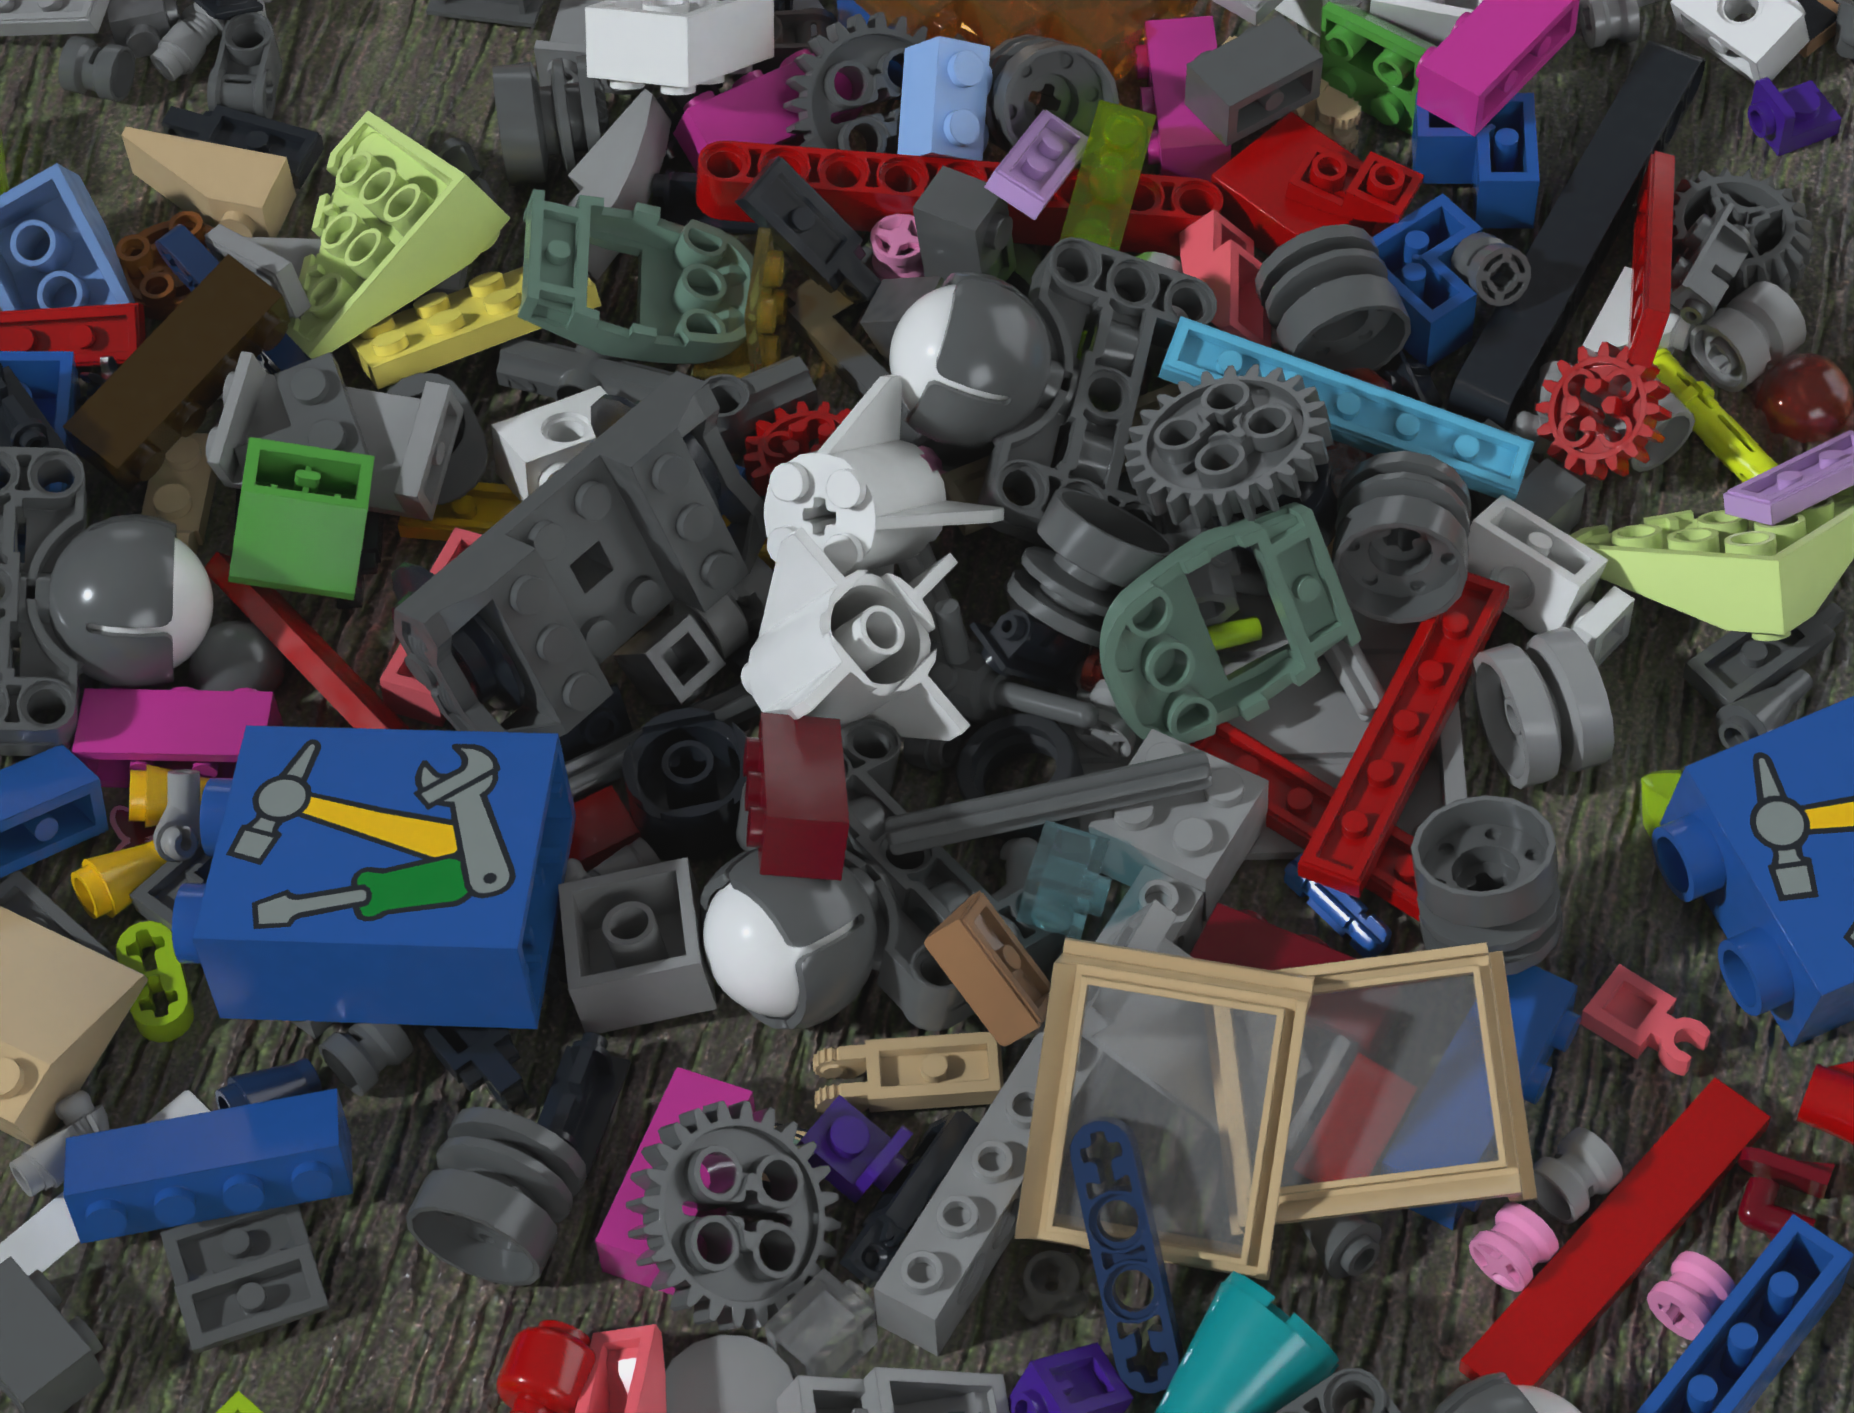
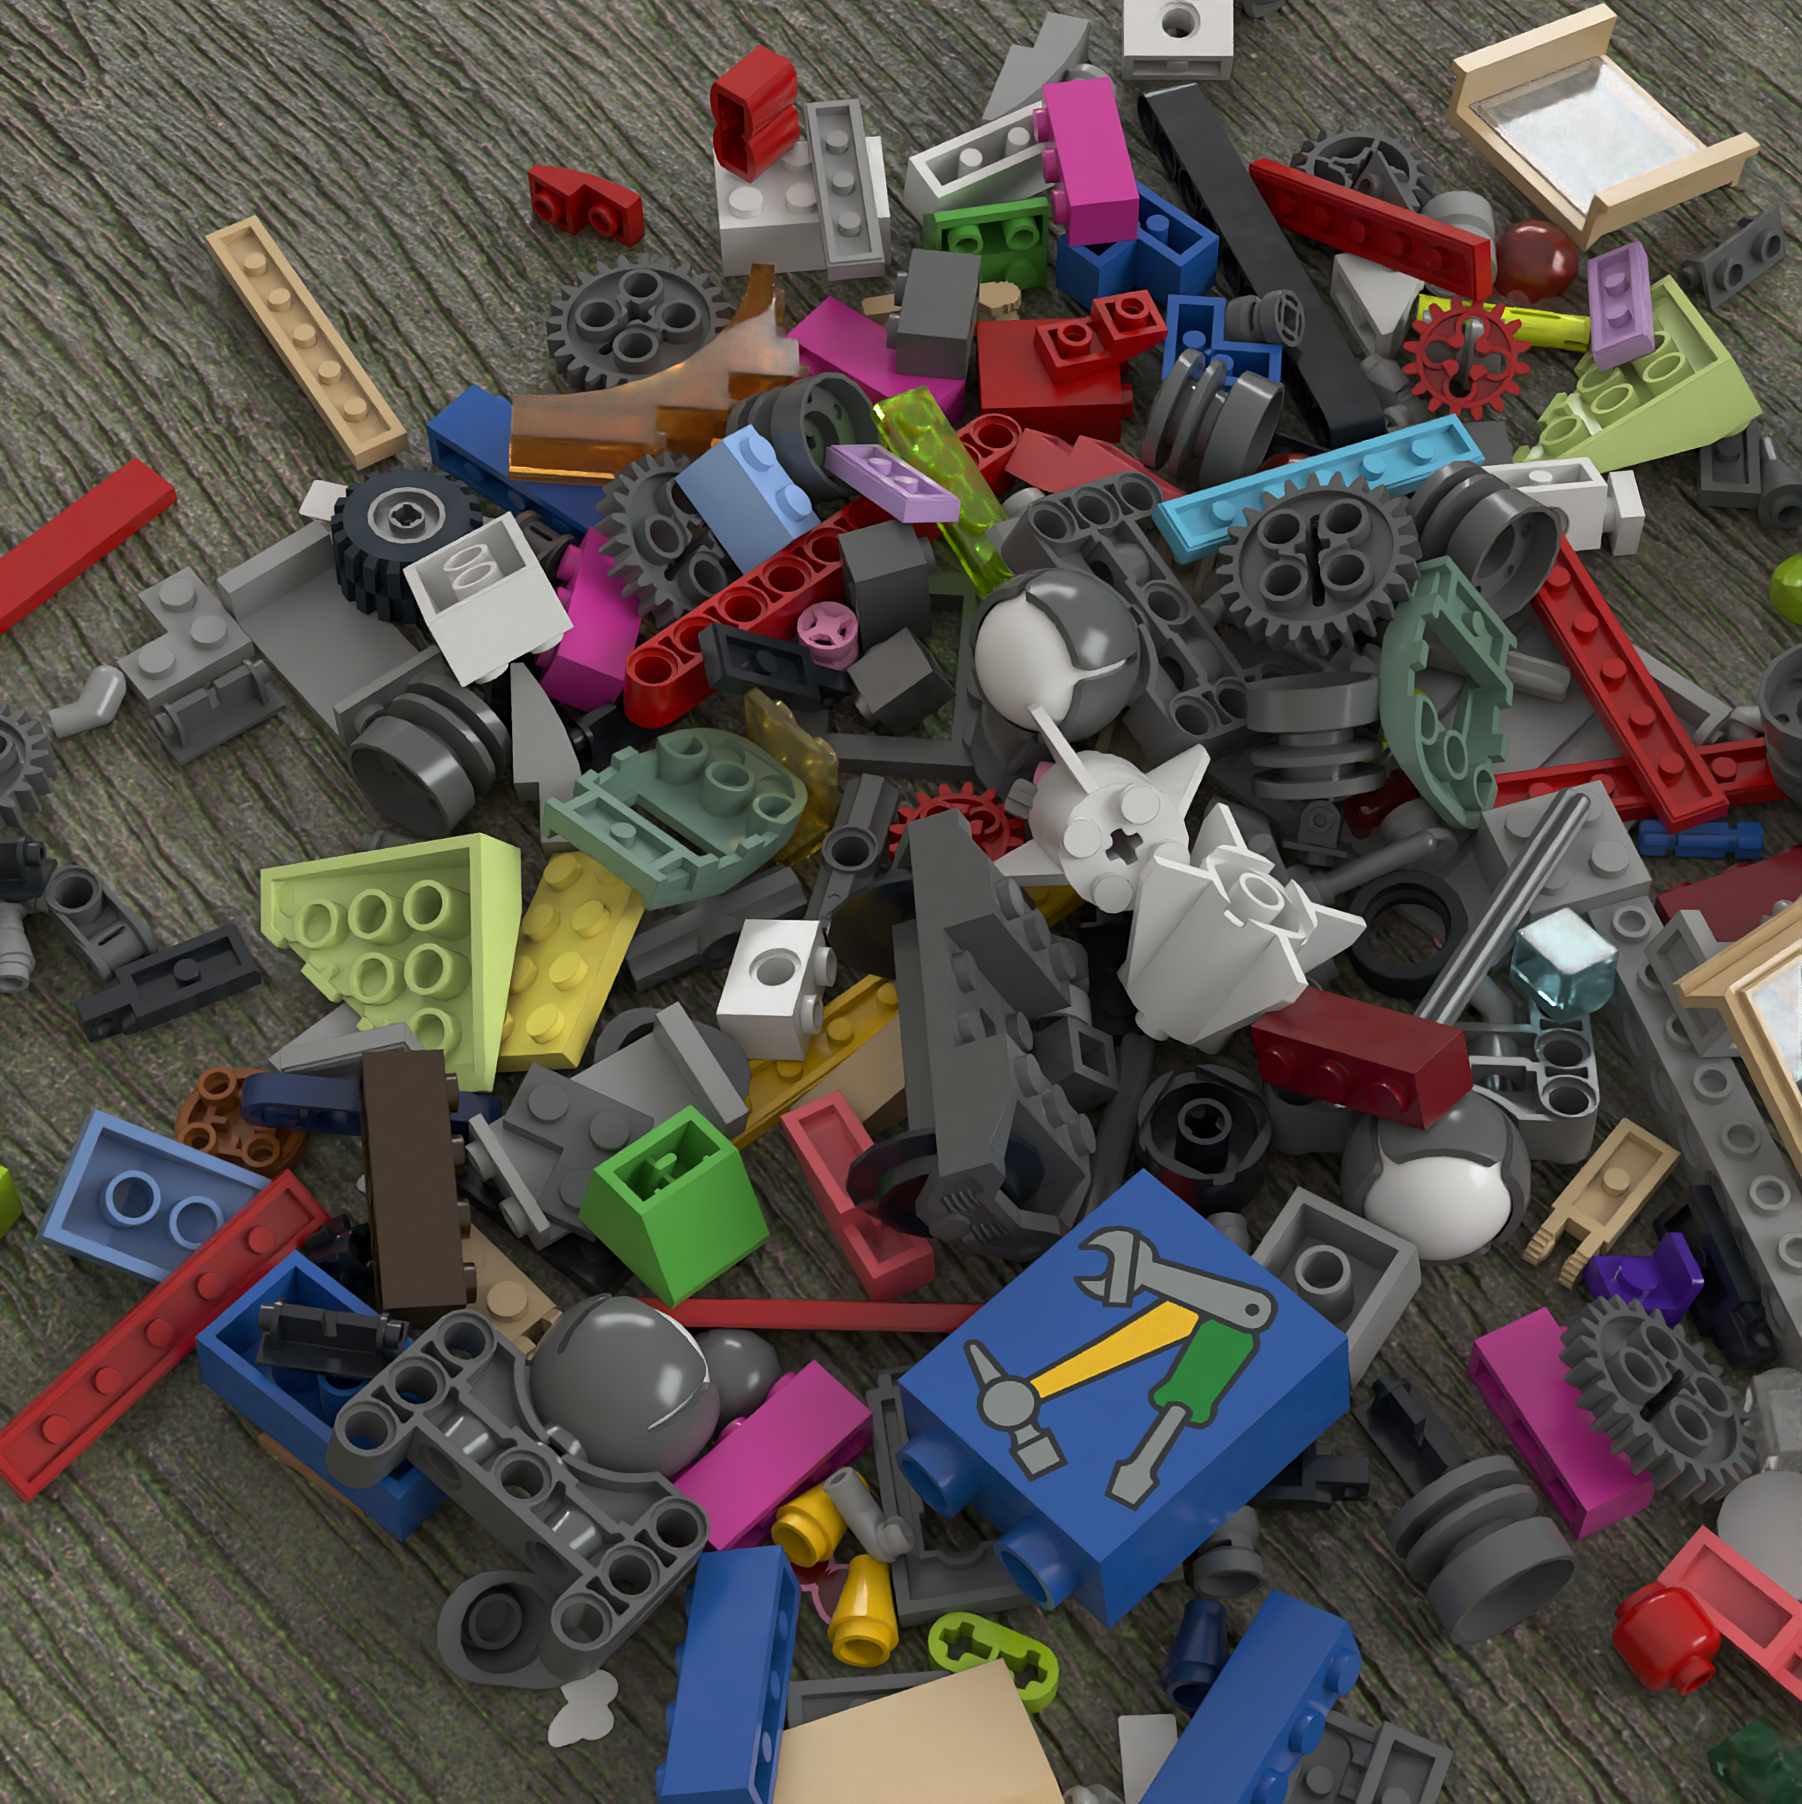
camera: 50 degrees left, 0 degrees up
(219, 182) = (212, 1024): tan slope -> none
(991, 969) = (1607, 1068): medium nougat slope -> none
(1543, 707) = (1679, 586): light grey wheel -> none
(1791, 116) = (1279, 81): dark purple bracket -> none

